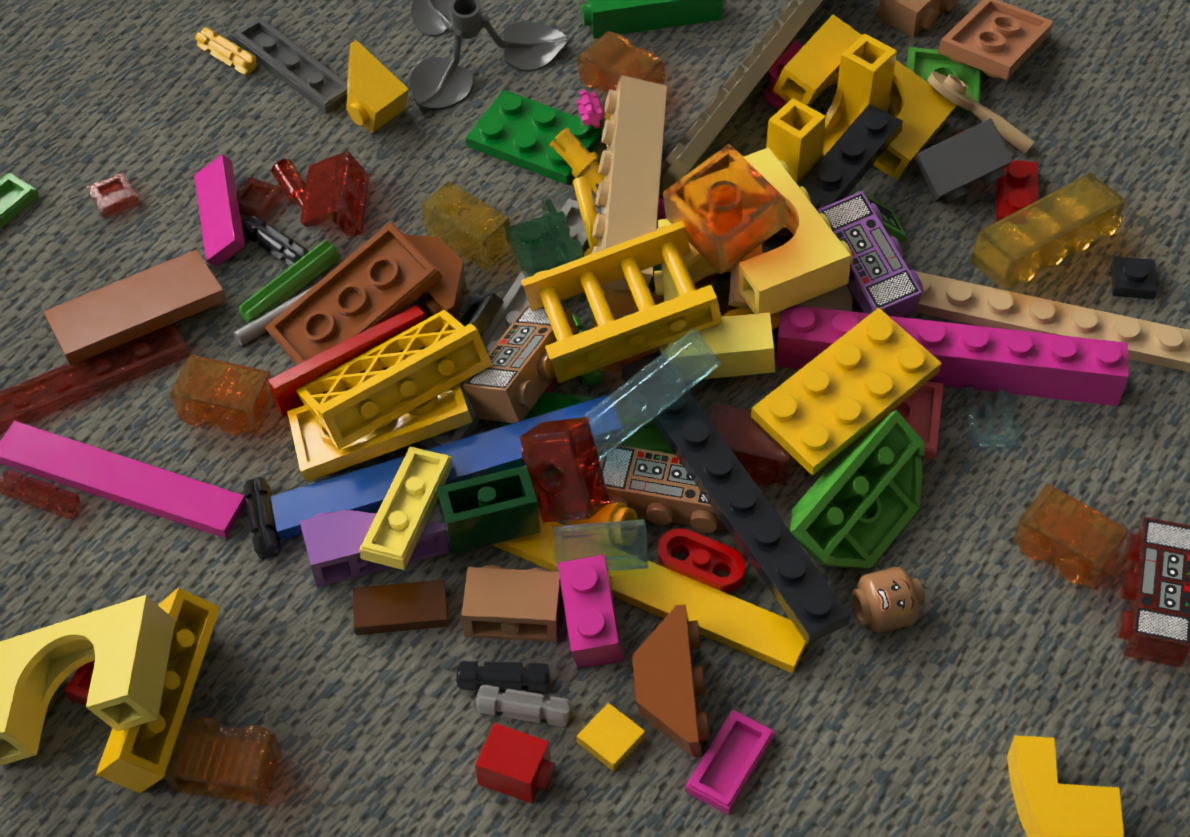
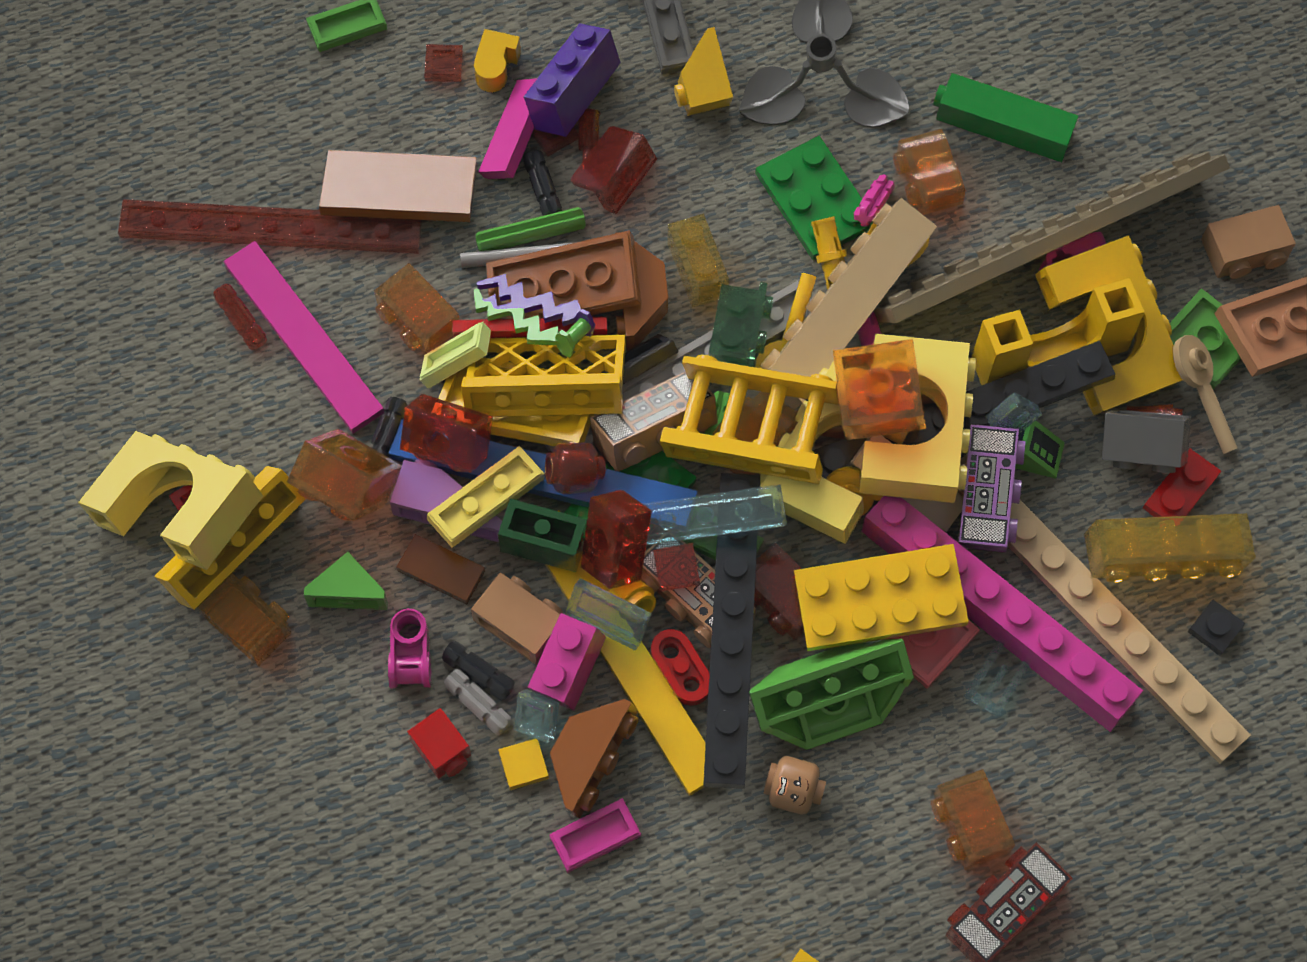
camera: 30 degrees right, 15 degrees up
(162, 166) = (492, 57): none -> yellow leg
(246, 563) = (344, 475): none -> clear orange brick
(250, 142) = (572, 79): none -> dark purple brick
(289, 408) = (455, 354): none -> yellowish green tile
(315, 671) = (345, 586): none -> bright green slope
(348, 453) = (466, 429): none -> clear red brick
(393, 333) = (519, 305): none -> piece
(425, 700) = (409, 658): none -> dark pink piece
(479, 433) = (574, 468): none -> clear red head
(594, 680) = (536, 715): none -> clear light blue tile
(638, 467) = (676, 567): none -> clear red tile
(842, 185) = (1014, 413): none -> clear light blue tile

